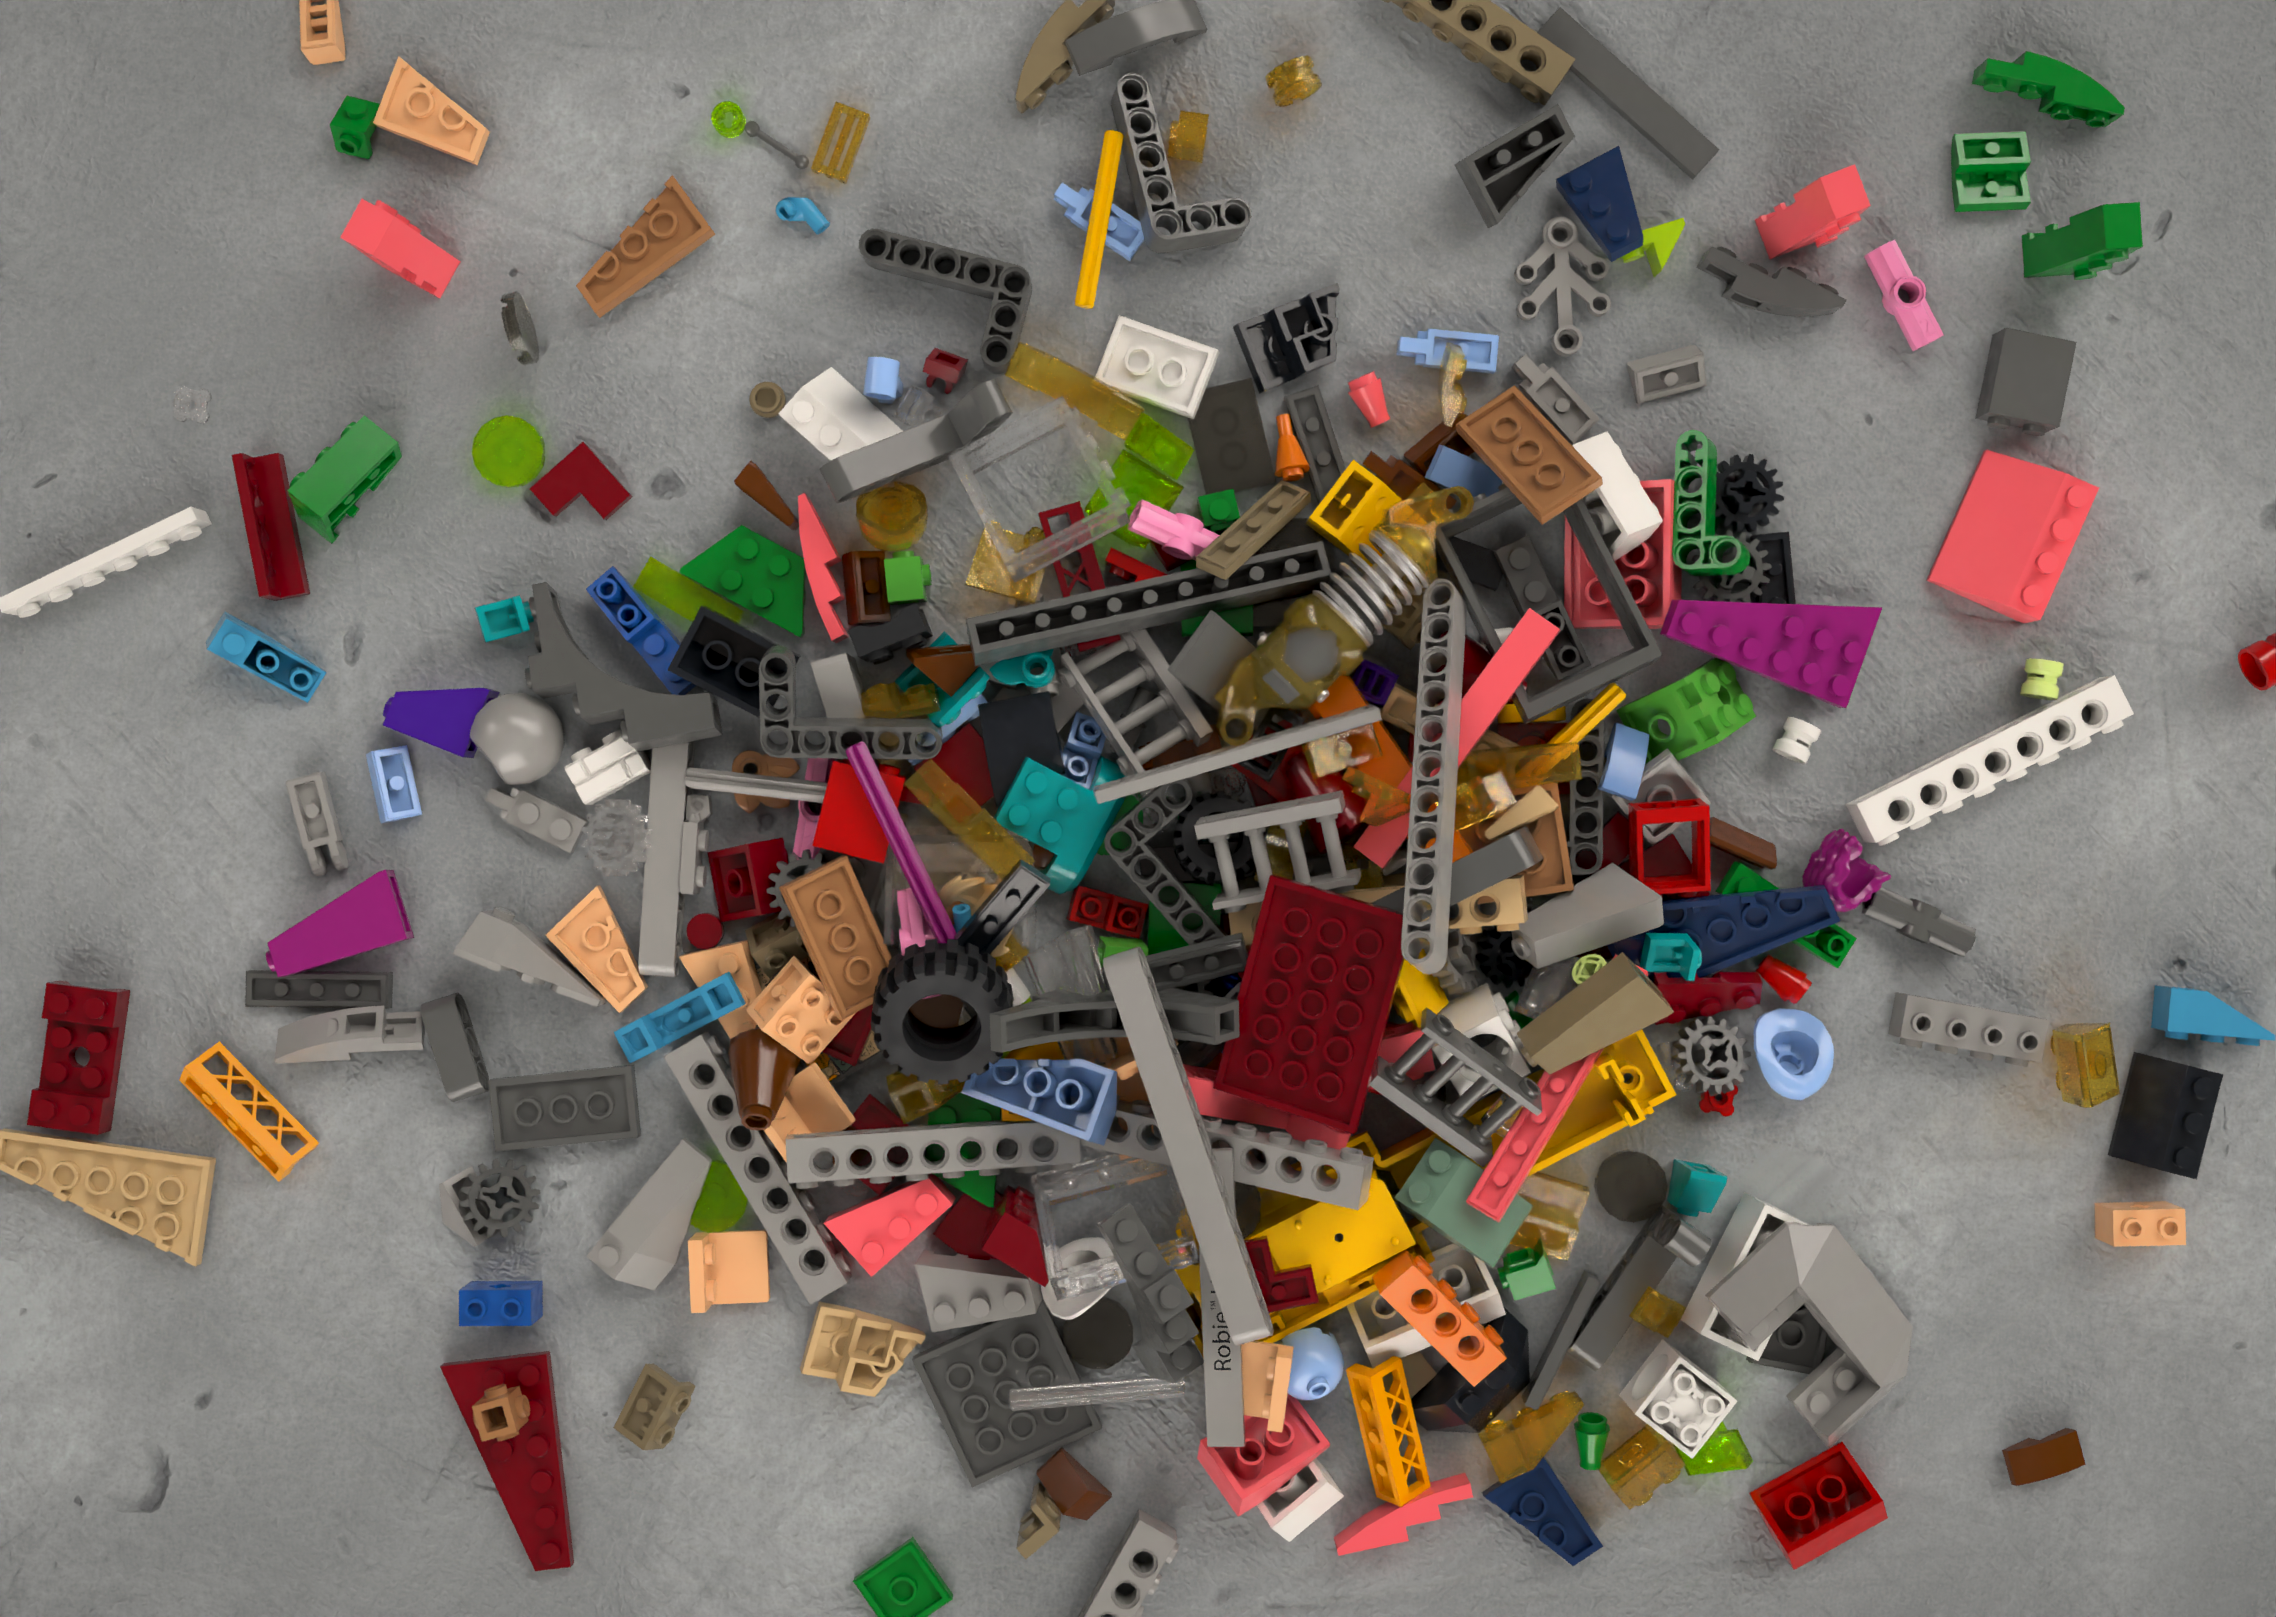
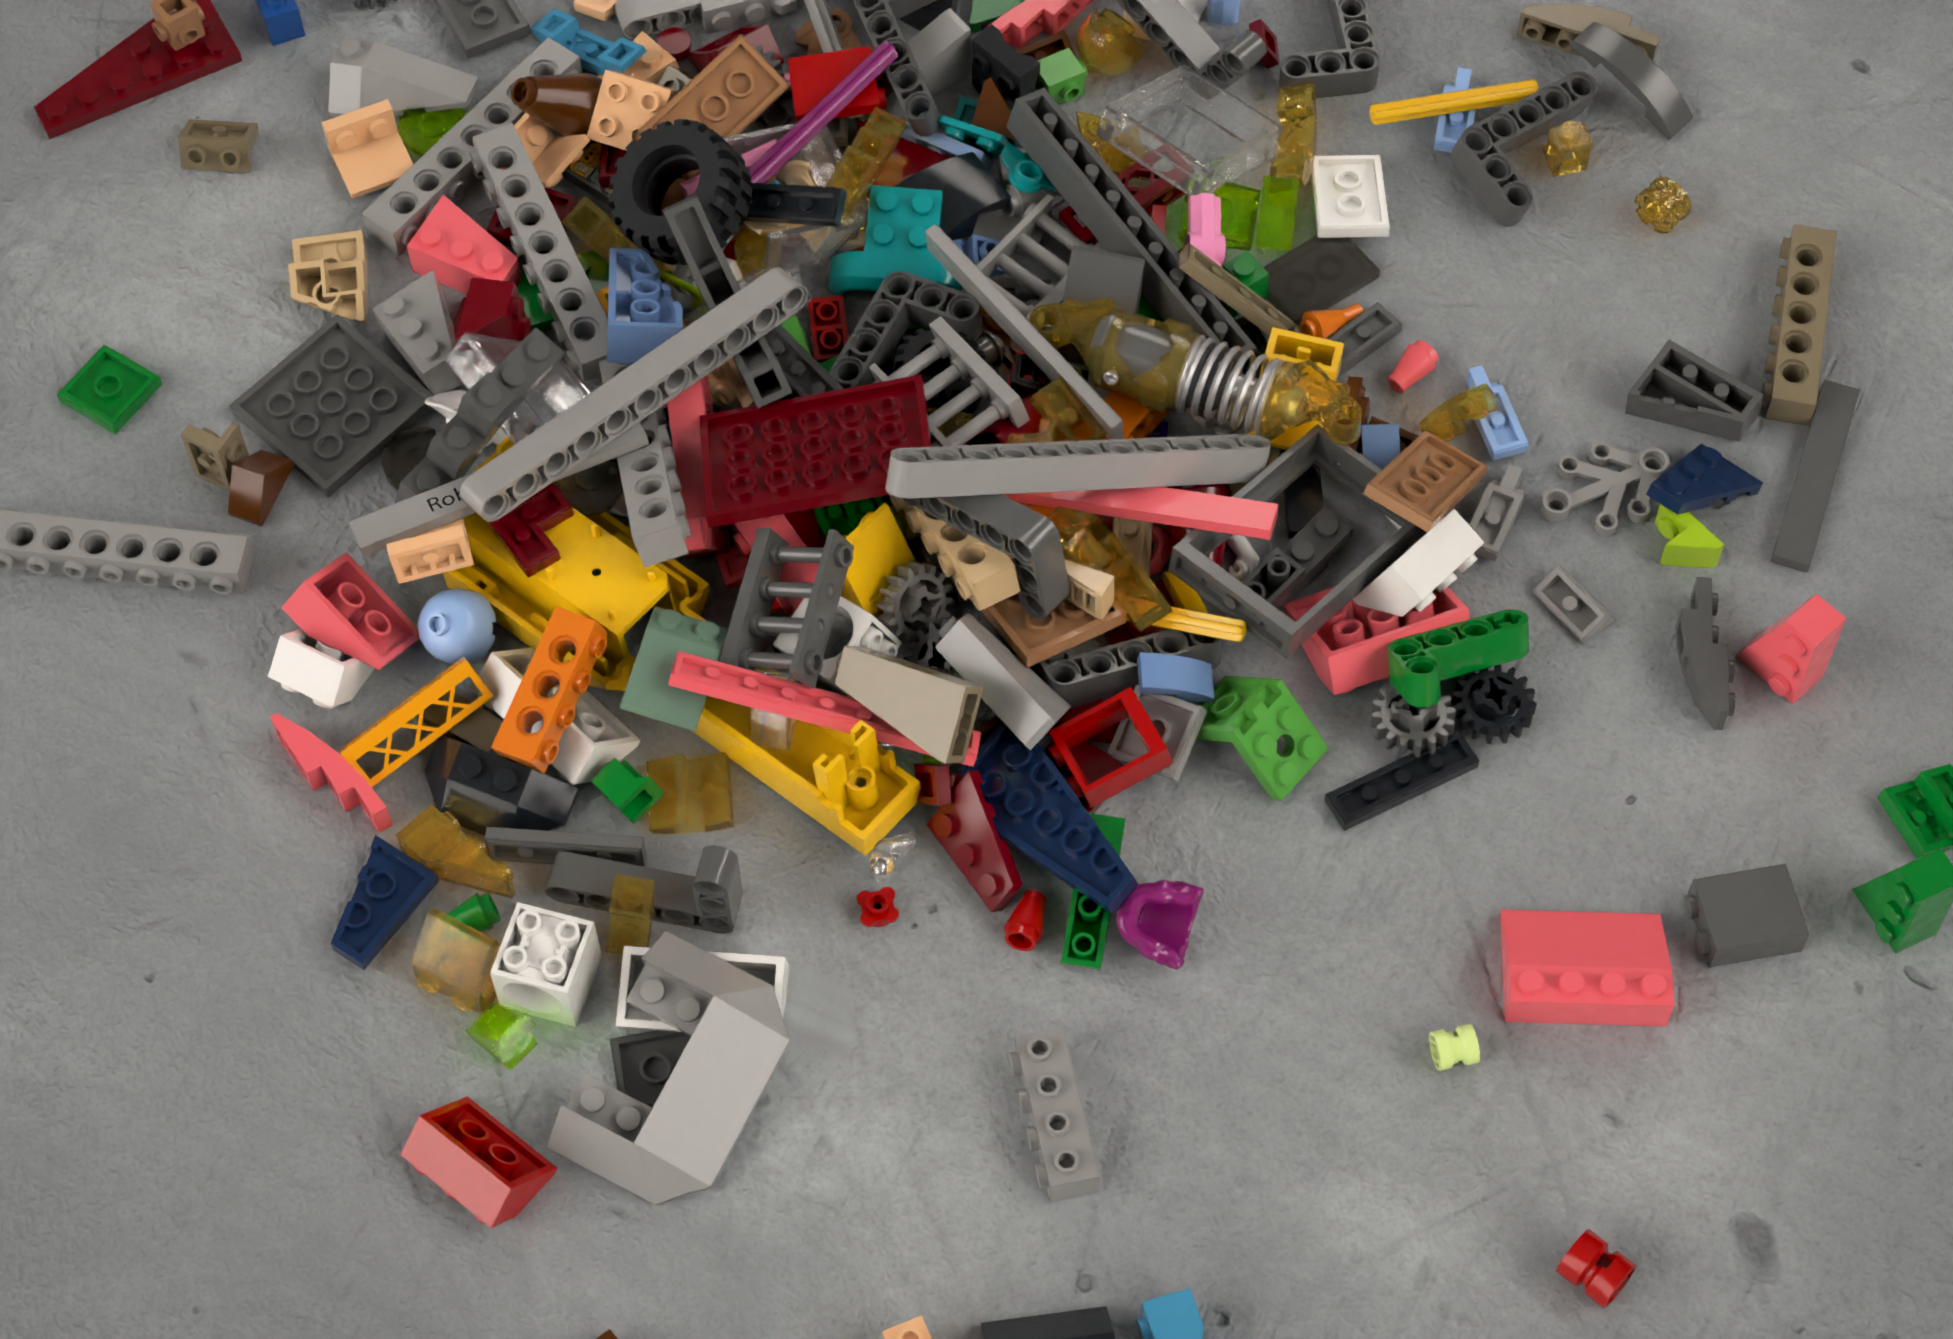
camera: 65 degrees right, 30 degrees down
(887, 702) = (946, 92): clear yellow slope -> none
(1094, 1393) = (352, 449): clear axle -> none
(1290, 339) = (1431, 290): black slope -> none
(1630, 1186) = (761, 858): clear smoke tile -> none
(1671, 954) = (1003, 777): teal bracket -> none
(1695, 1187) = (774, 906): teal slope -> none
(1725, 1058) = (934, 874): dark grey gear -> none
(1742, 844) = (1146, 832): reddish brown slope -> none
(1792, 644) = (1368, 797): magenta wing -> none
(1793, 1052) = (952, 946): light blue hat -> none
(1796, 740) = (1284, 840): white wheel -> none
(1893, 274) = (1755, 787): bright pink piece -> none
(1920, 921) = (1146, 1025): dark grey piece -> none
(2085, 1063) = (1069, 1228): clear yellow slope -> none
(2107, 710) = (1370, 1031): white brick -> none

